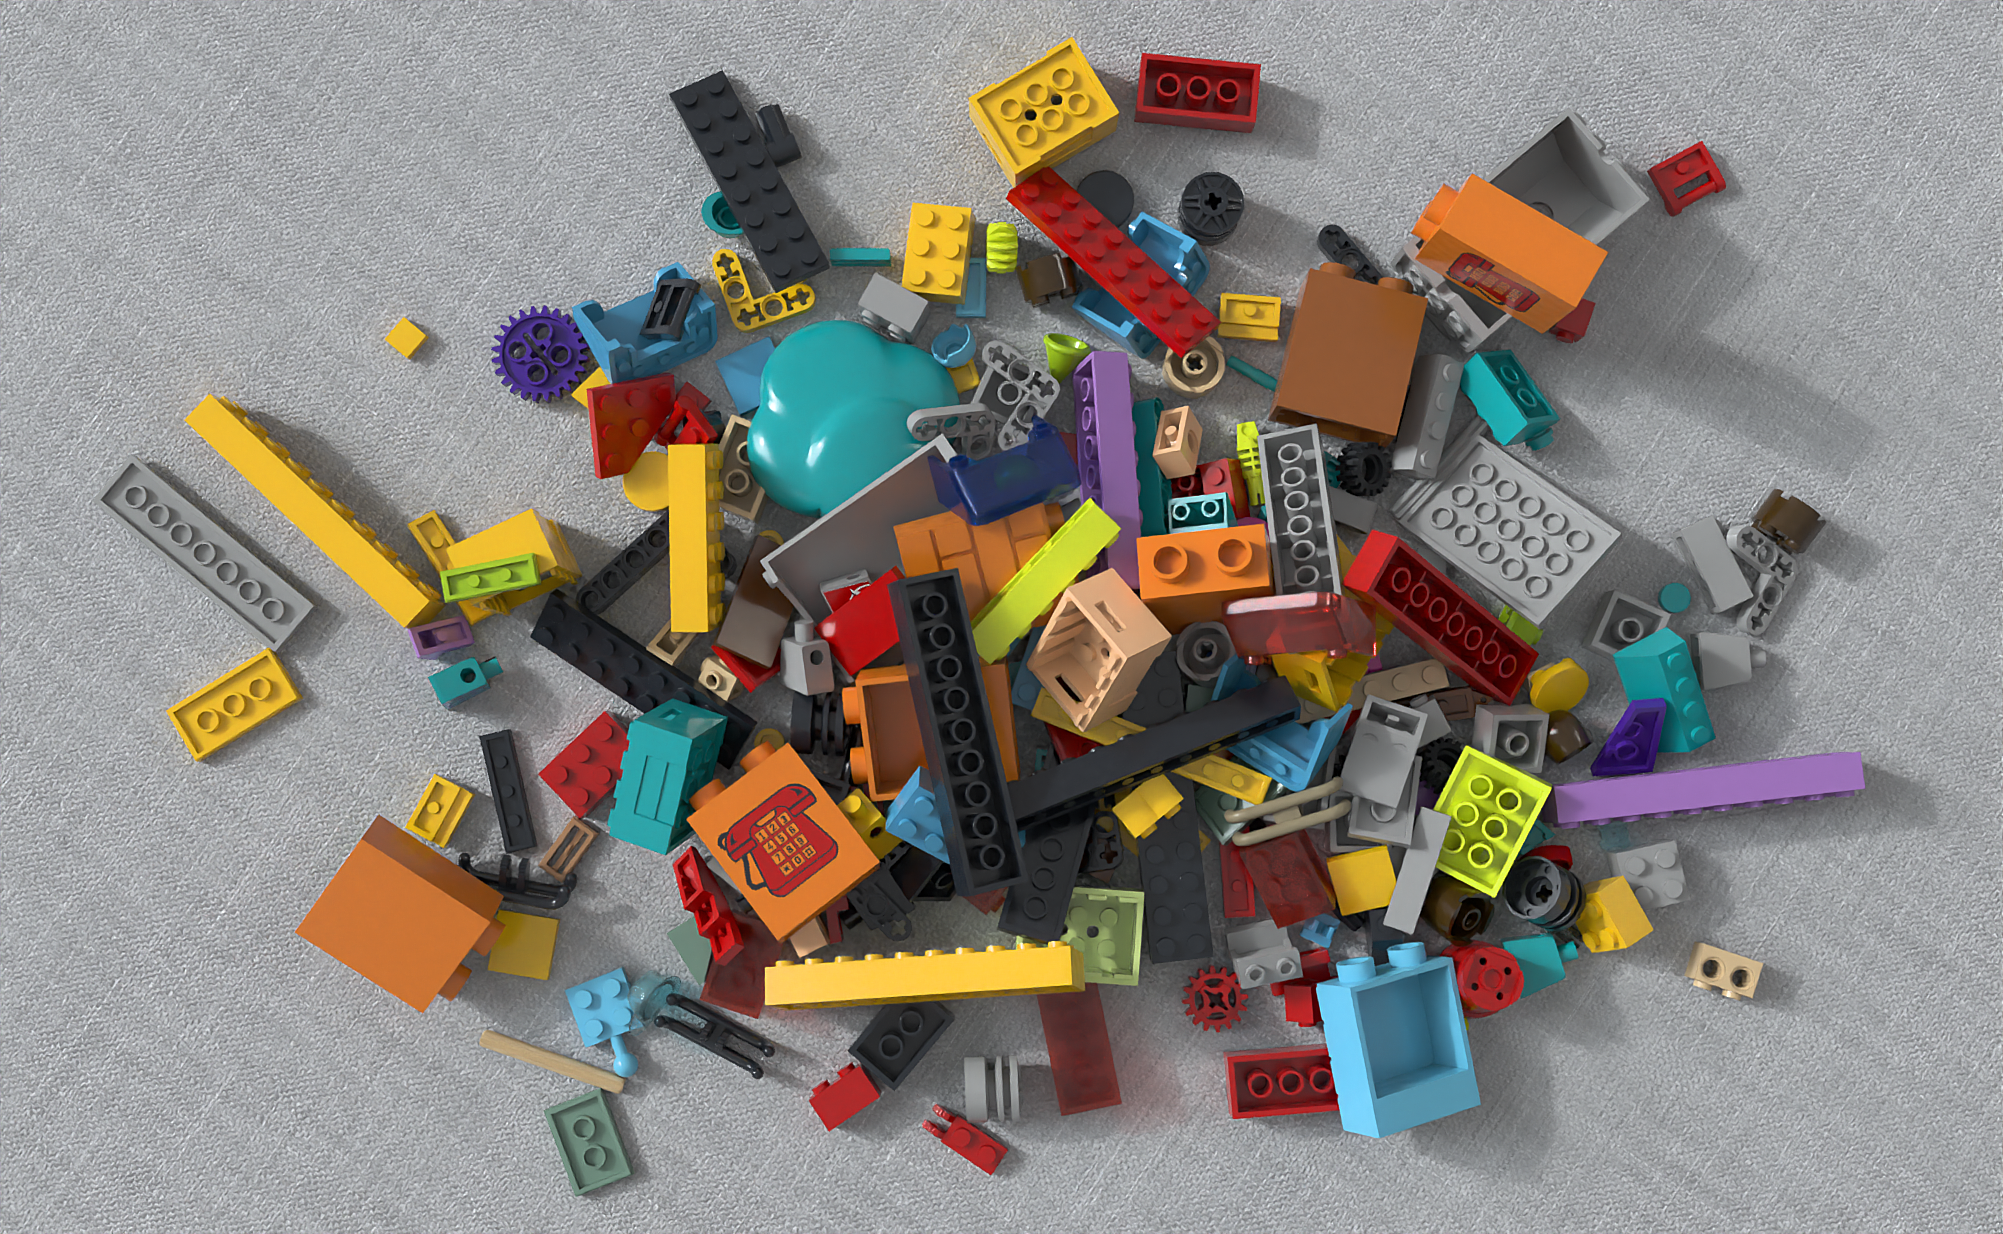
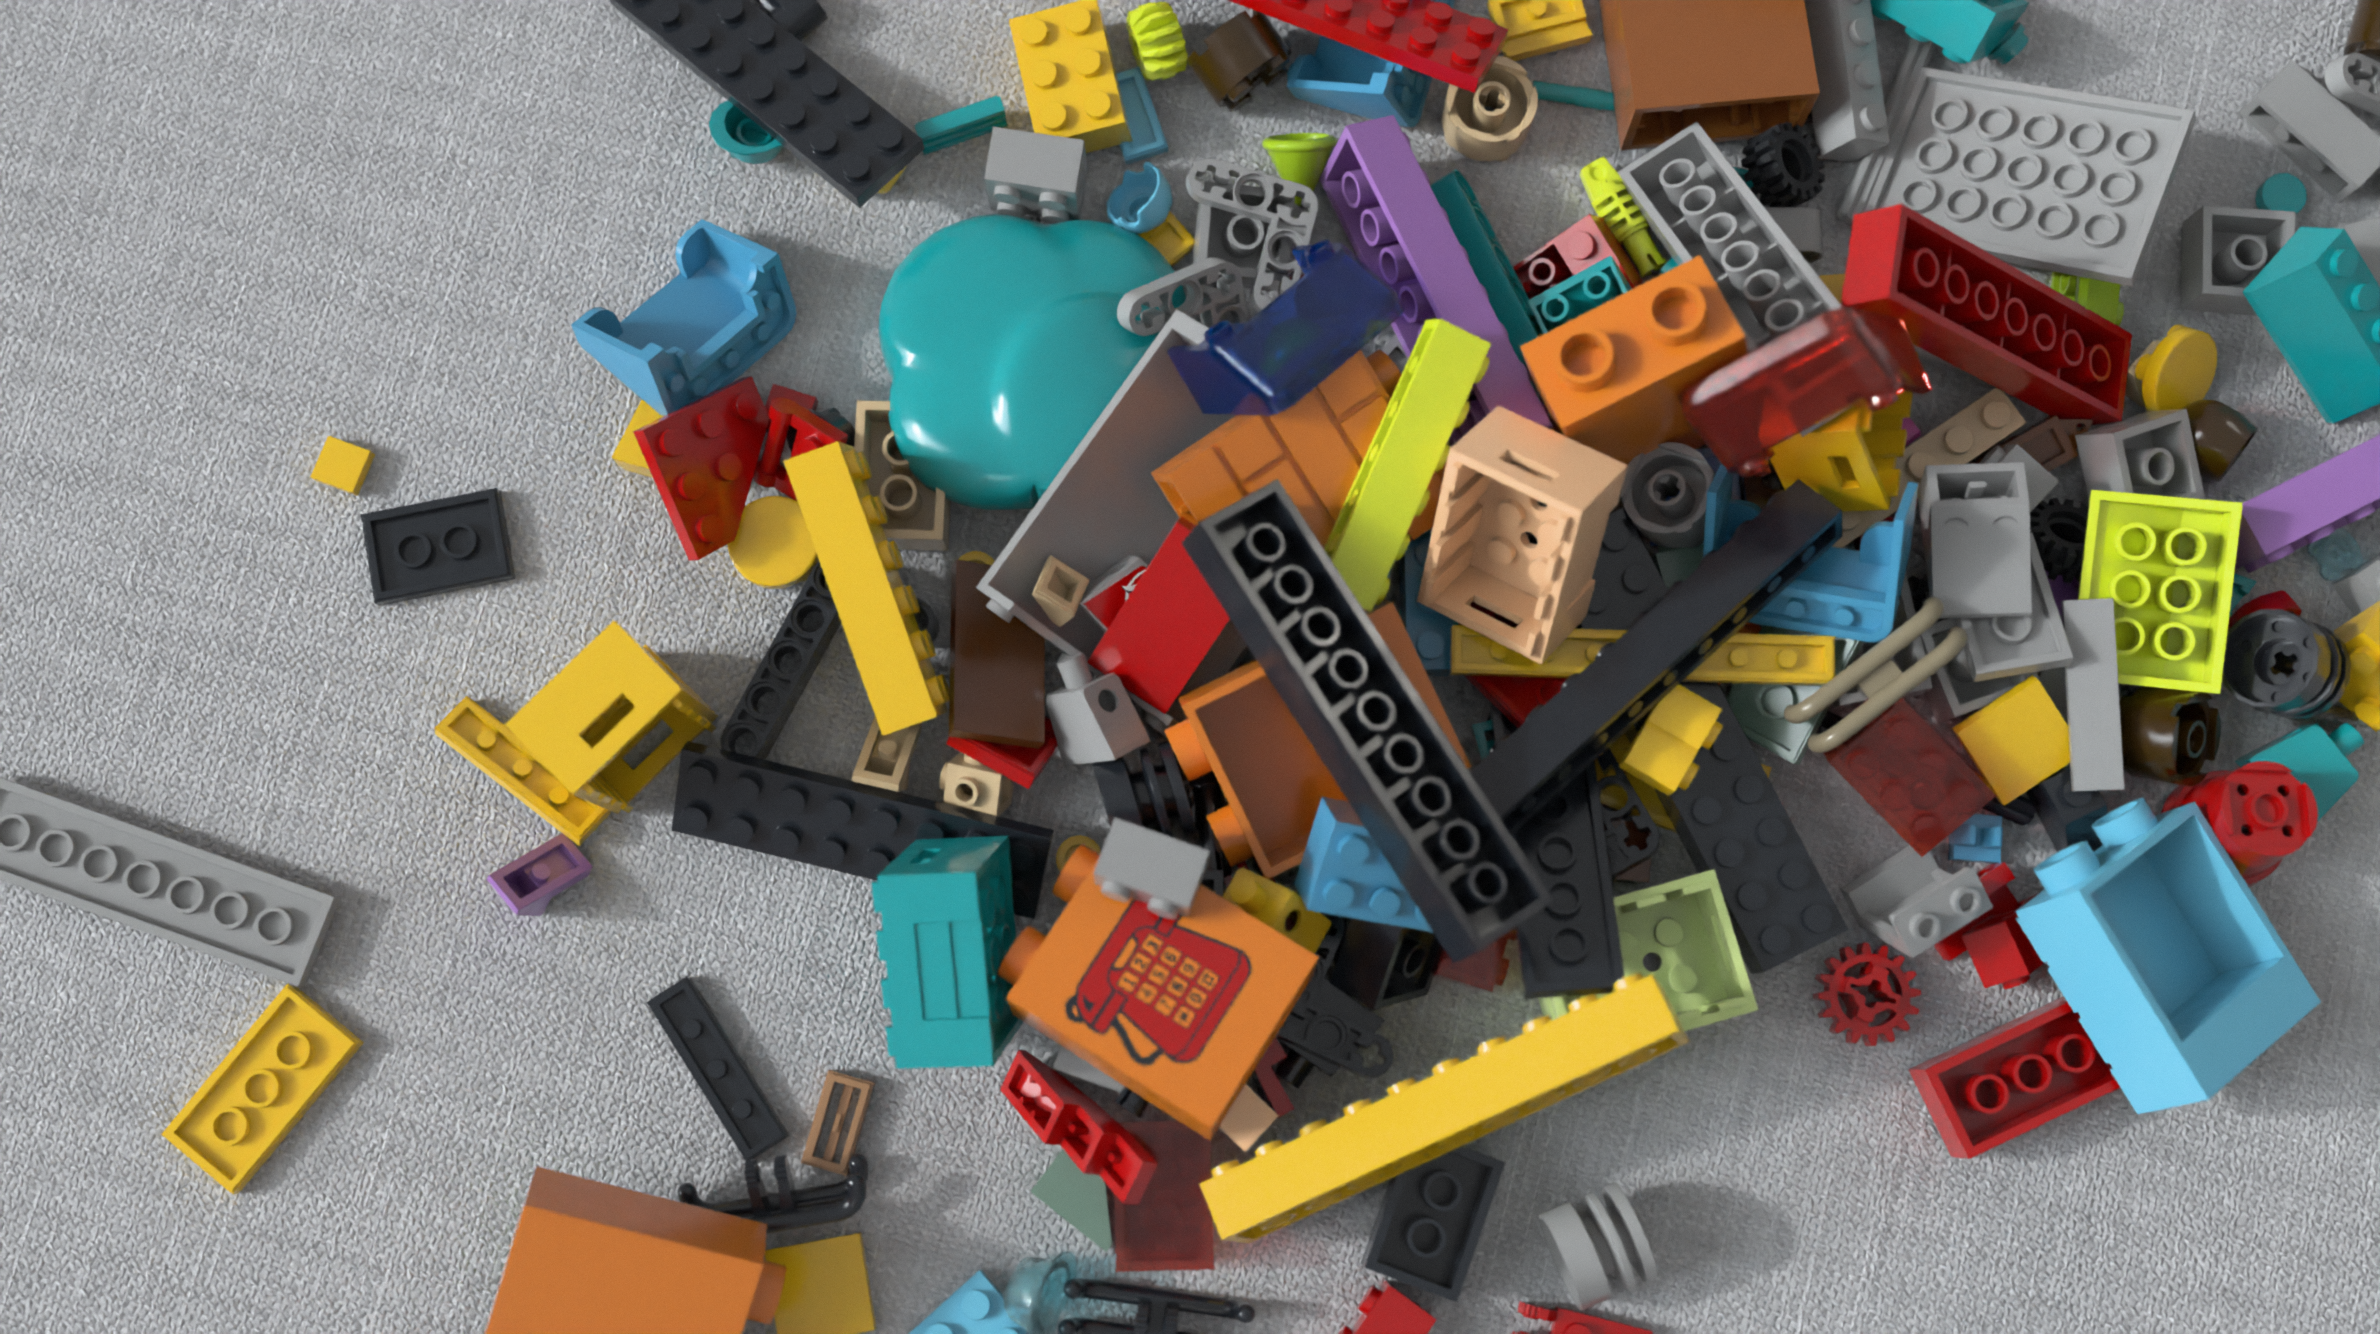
camera: 20 degrees left, 5 degrees down
(314, 511) = (290, 754): yellow brick -> none
(440, 810) = (626, 1134): yellow plate -> none
(447, 409) = (437, 546): none -> black tile
(451, 684) = (585, 943): teal torso -> none
(490, 578) = (587, 743): lime tile -> none
(520, 371) = (570, 384): dark purple gear -> none
(589, 765) = (828, 984): red brick -> none
(669, 309) = (714, 283): black plate -> none
(743, 373) = (851, 344): dark azure tile -> none
(747, 303) = (822, 246): yellow beam -> none
(798, 774) = (1150, 869): none -> light grey brick
(811, 578) = (1059, 590): none -> tan slope
(1079, 1050) = (1702, 1141): clear red brick -> none
(1177, 442) = (1509, 219): light nougat brick -> none
(1236, 882) = (1829, 810): red plate -> none
(1633, 741) = (2315, 406): dark purple wing -> none

